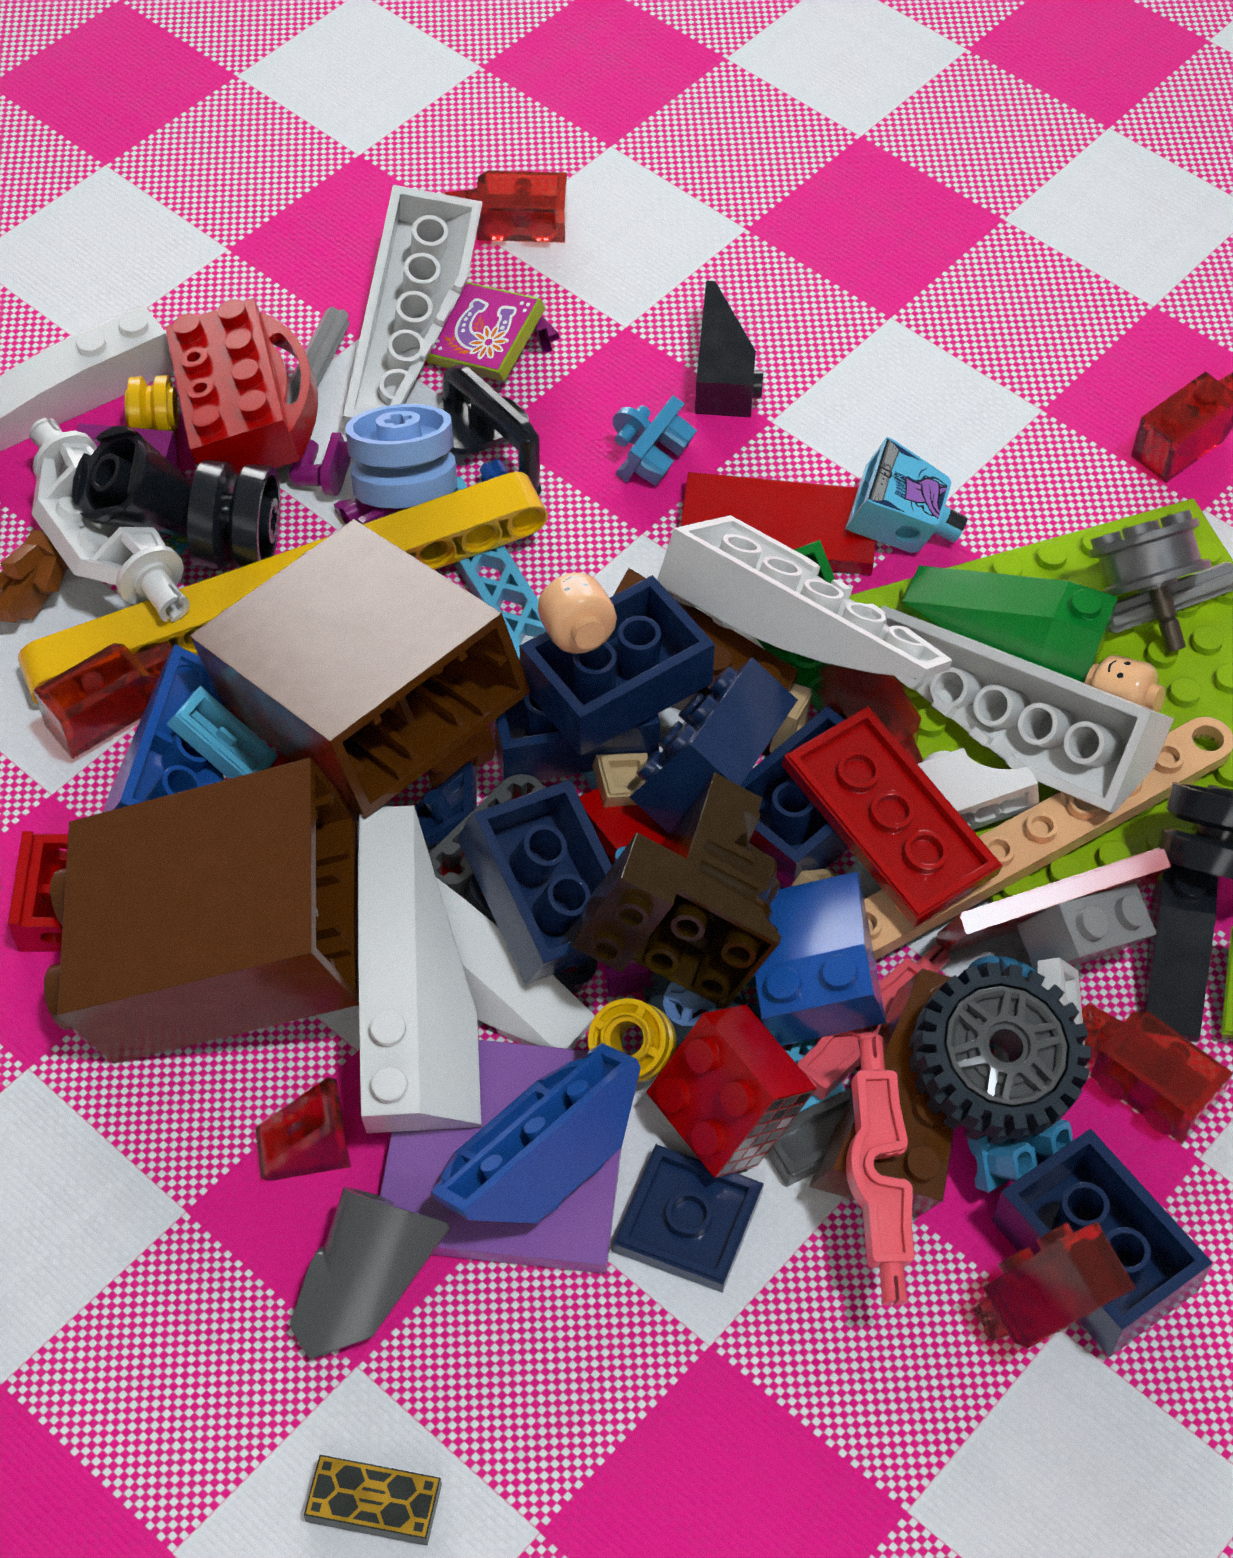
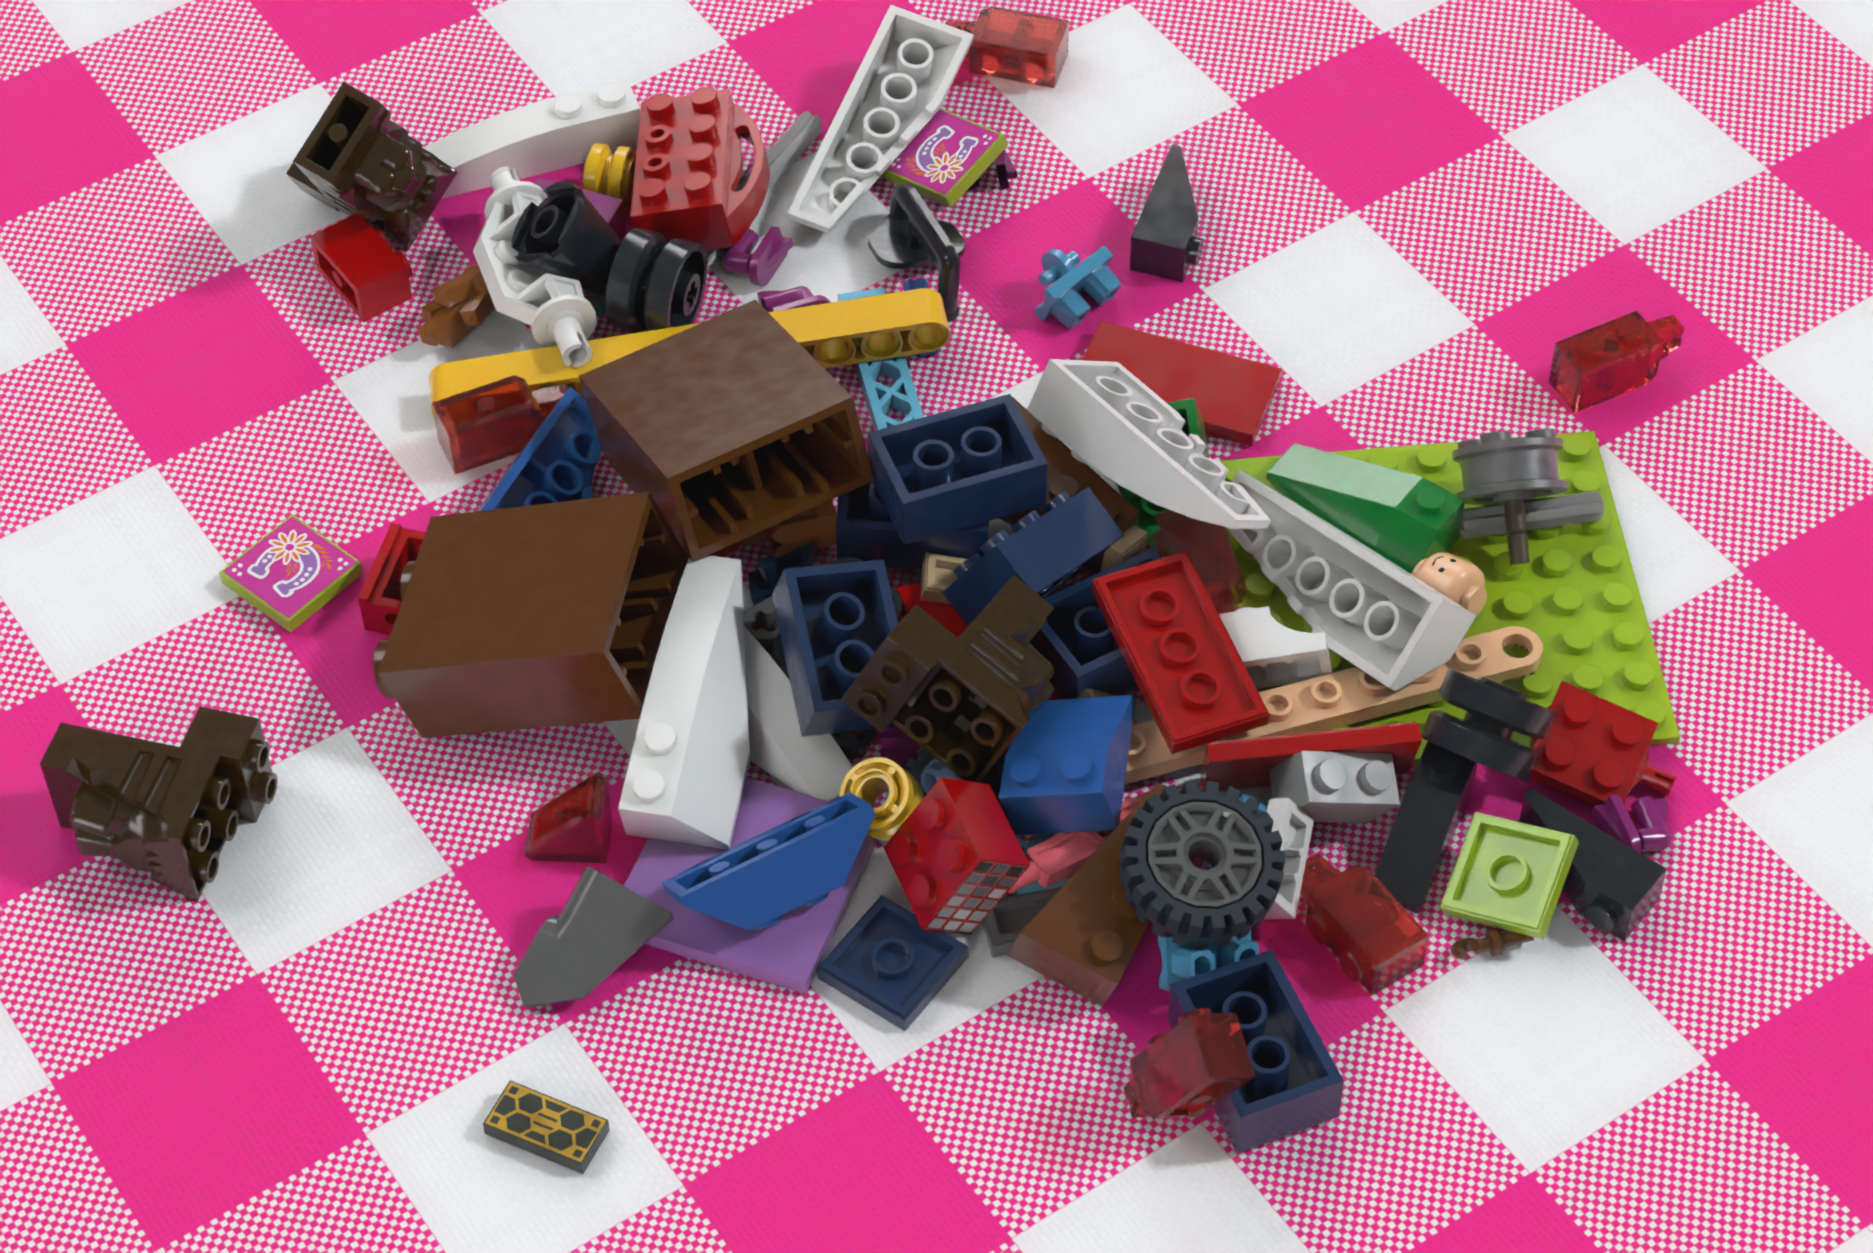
camera: 15 degrees right, 5 degrees down
(219, 744) = (578, 477): medium azure tile -> none
(401, 455) = (827, 256): light blue wheel -> none
(577, 613) = (923, 411): light nougat head -> none
(883, 1199) = (1057, 963): coral piece -> none
(903, 501) = (1298, 382): medium azure torso -> none

